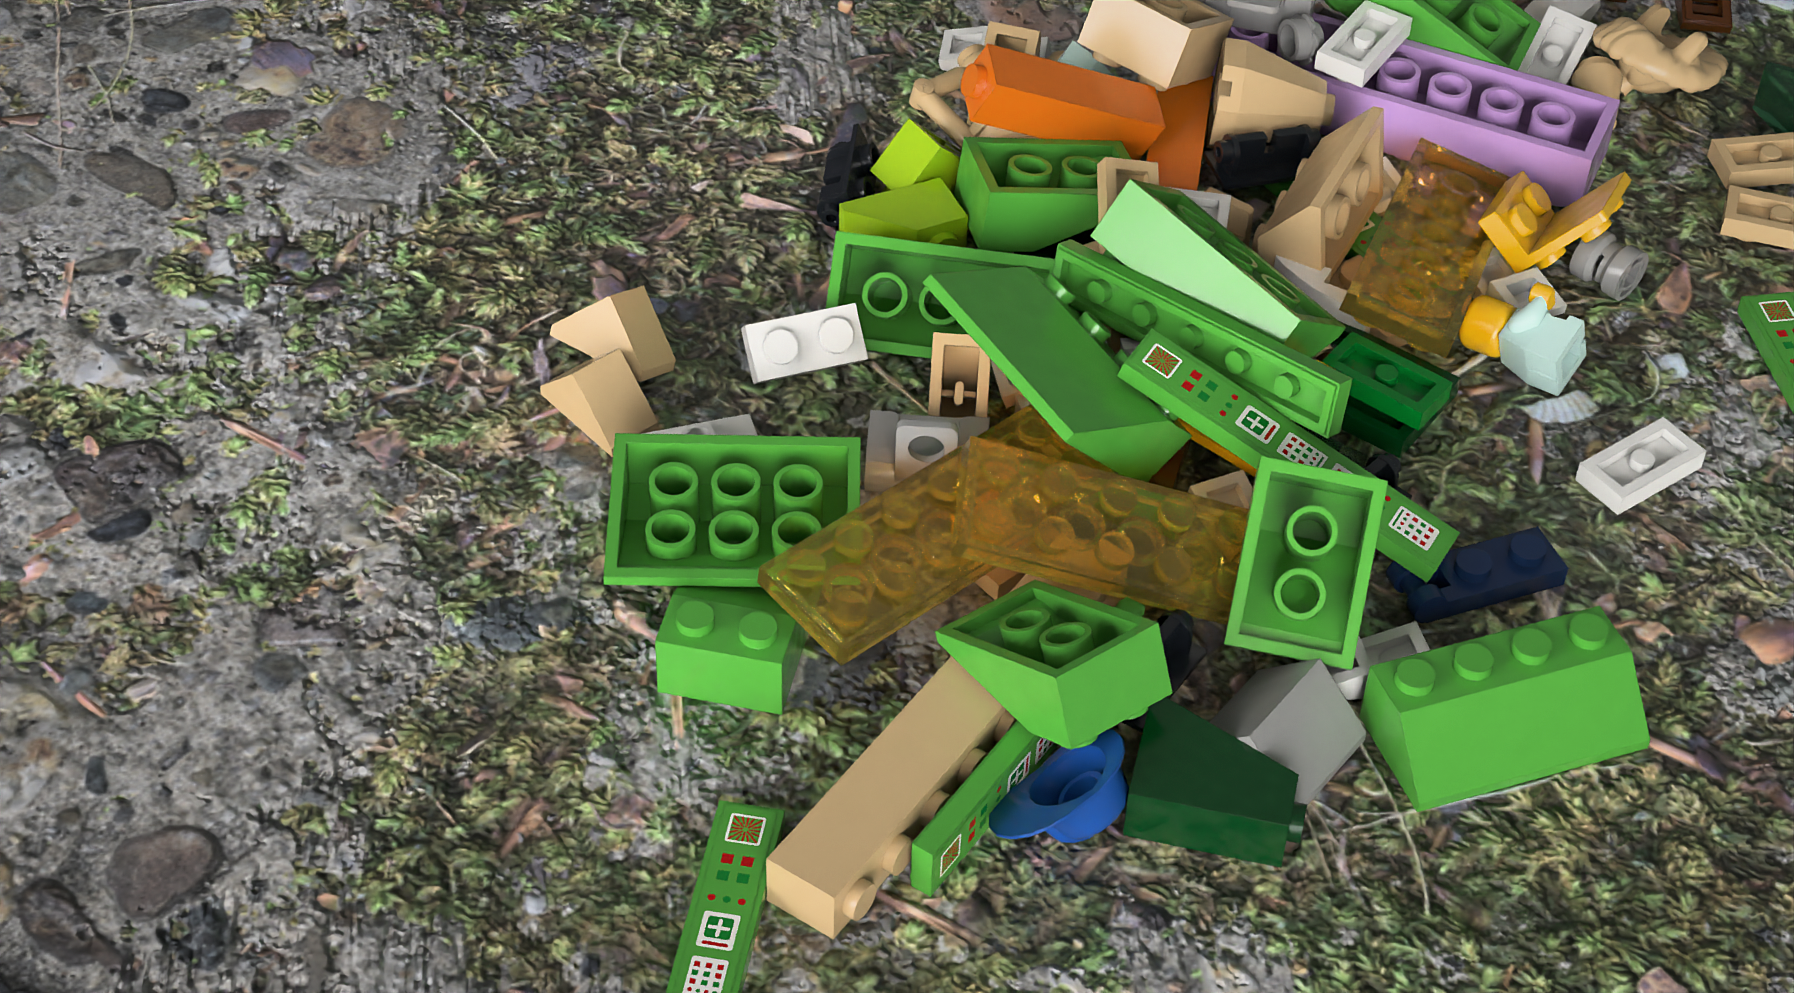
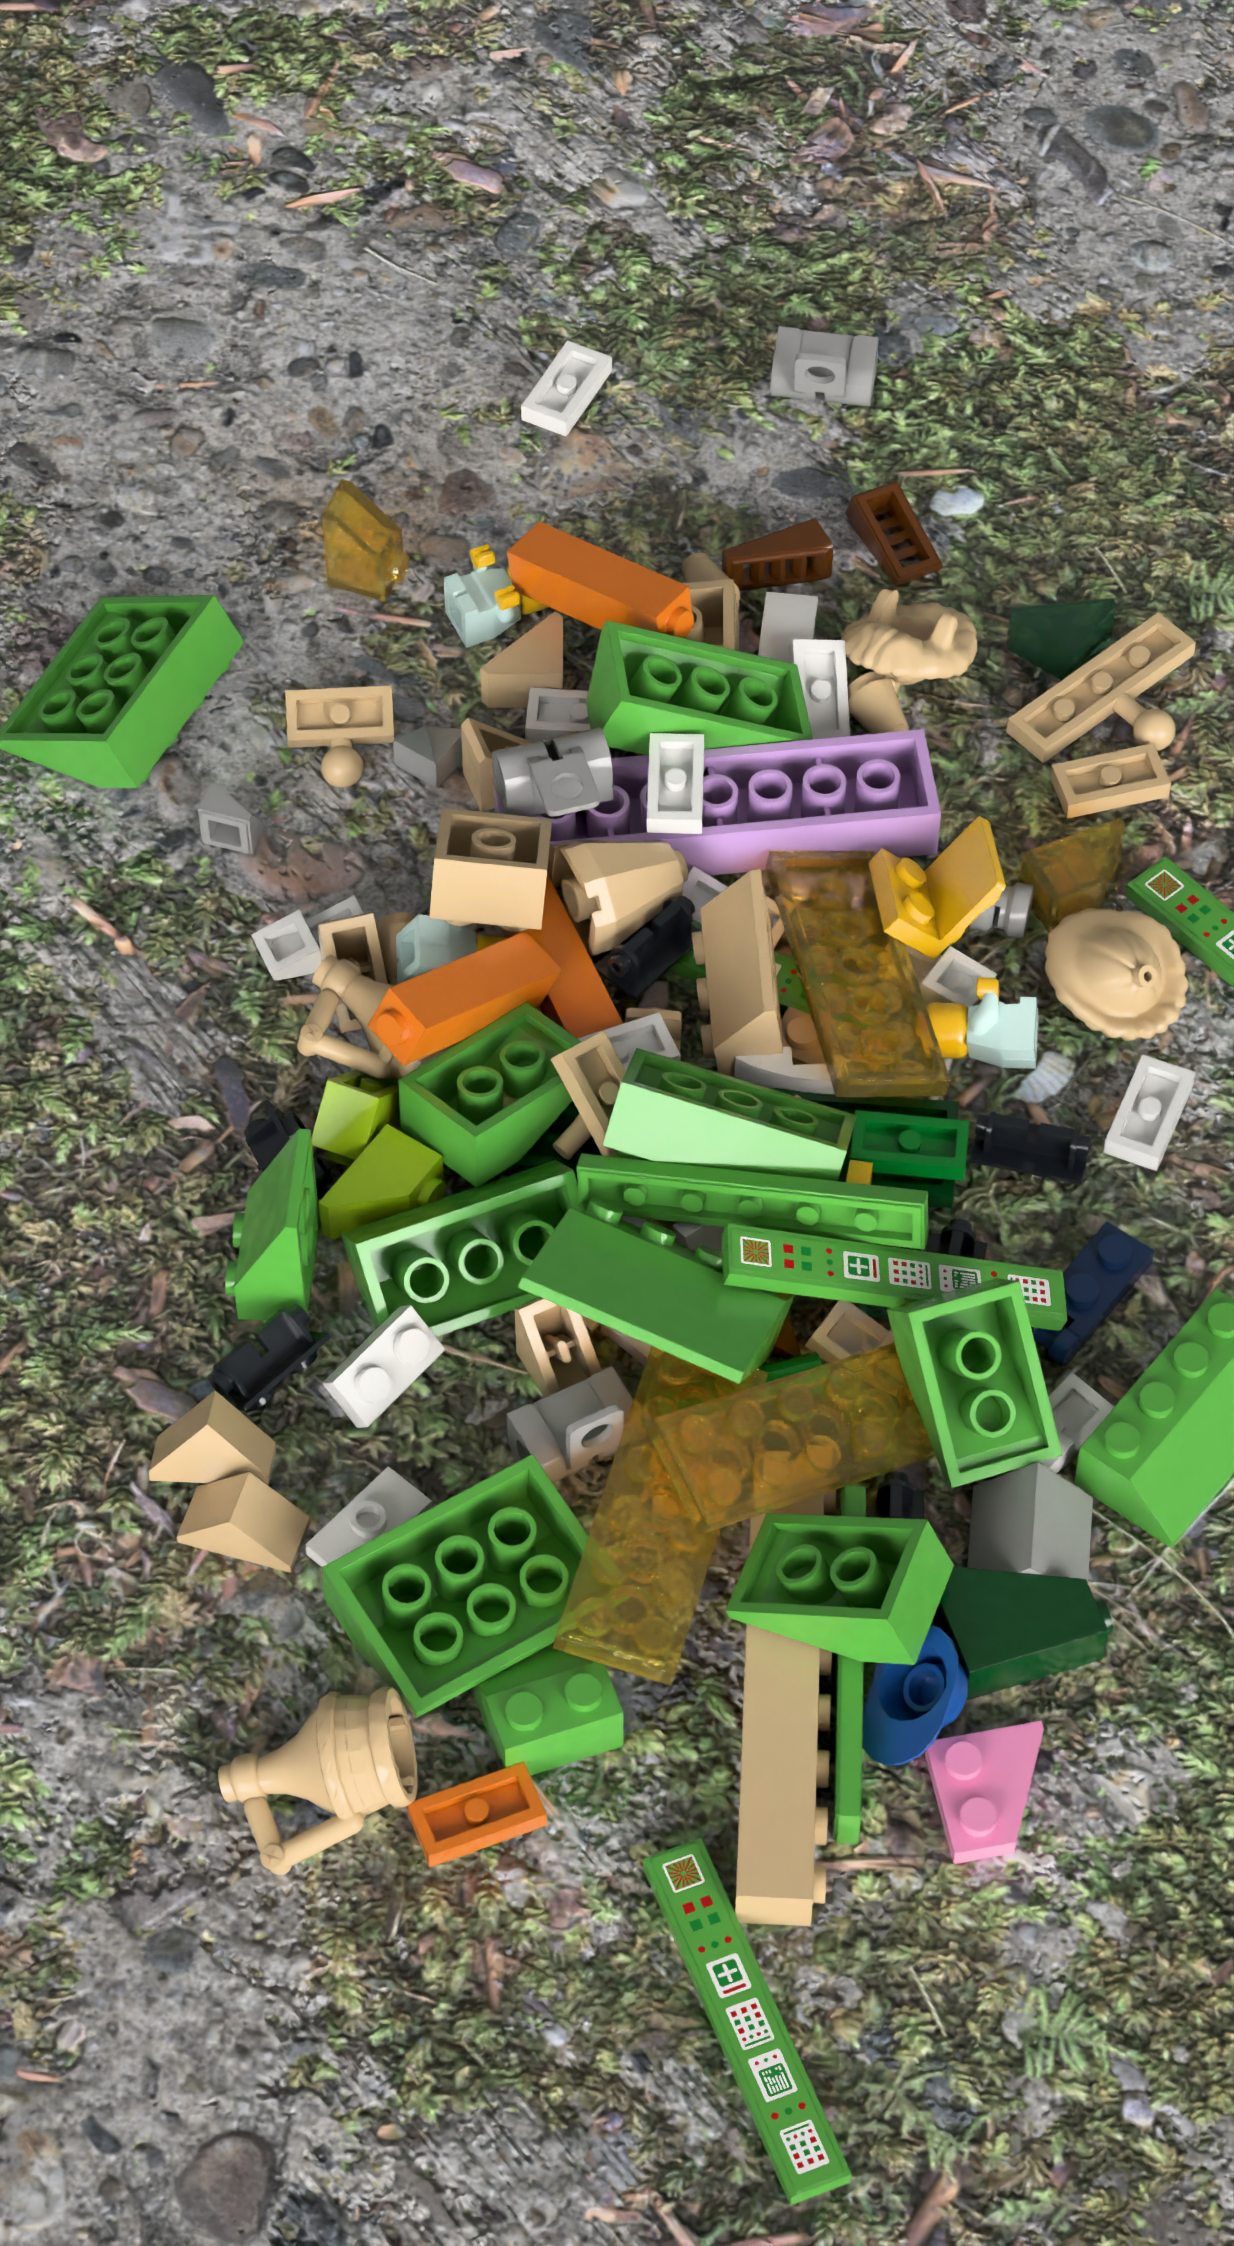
camera: 30 degrees left, 10 degrees up
(520, 590) = (345, 1759): none -> tan piece
(605, 693) = (477, 1814): none -> orange plate
(689, 299) = (287, 1350): none -> black hinge
(788, 210) = (277, 1235): none -> bright green slope
(1082, 908) = (984, 1787): none -> bright pink wing
(1300, 38) = (618, 807): light grey plate -> none
(1515, 449) = (1030, 1148): none -> black hinge
(1682, 348) = (1117, 972): none -> tan piece
(1697, 268) = (1073, 871): none -> clear yellow slope

